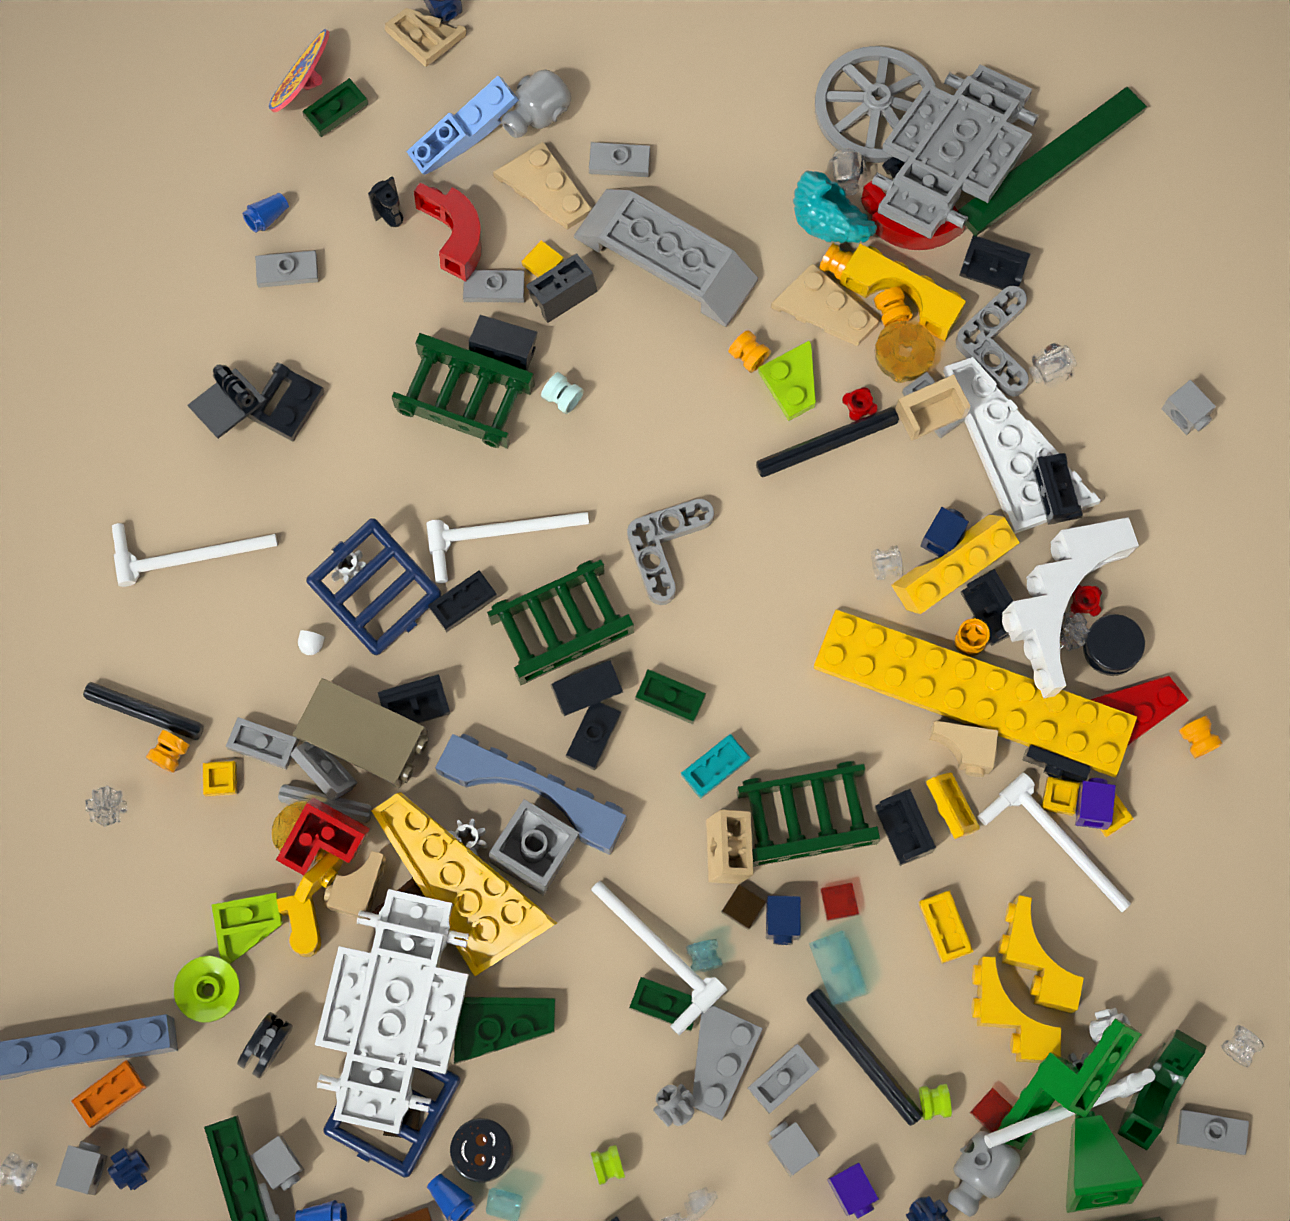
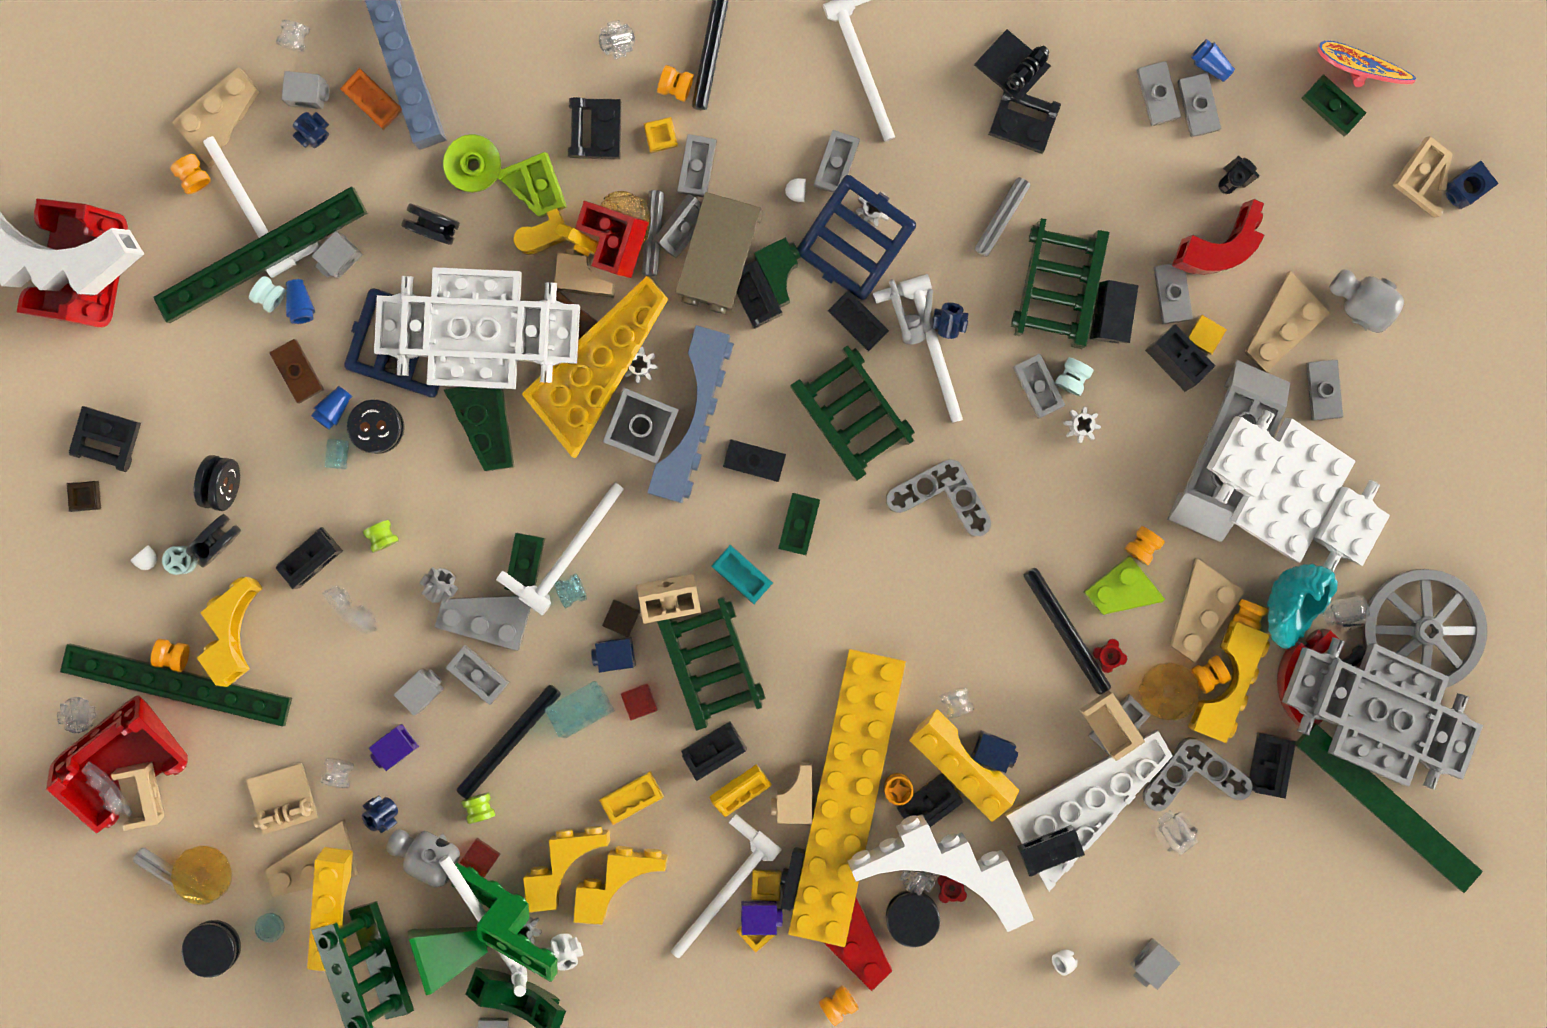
camera: 80 degrees right, 15 degrees up
(201, 838) = (604, 128): none -> black plate
(289, 596) = (836, 160): none -> light grey plate
(307, 232) = (1199, 105): none -> light grey plate
(381, 439) = (1002, 216): none -> light grey axle
(385, 672) = (776, 264): none -> dark green arch
(463, 130) = (1330, 234): light blue slope -> none
(477, 547) = (912, 327): none -> light grey plant
(480, 505) = (950, 320): none -> dark blue gear
(566, 429) = (1039, 386): none -> light grey plate
(586, 688) = (794, 447): black hinge -> none
(618, 386) = (1089, 427): none -> white gear
(718, 197) = (1296, 491): none -> white piece
(1178, 504) = (1064, 962): none -> white hinge

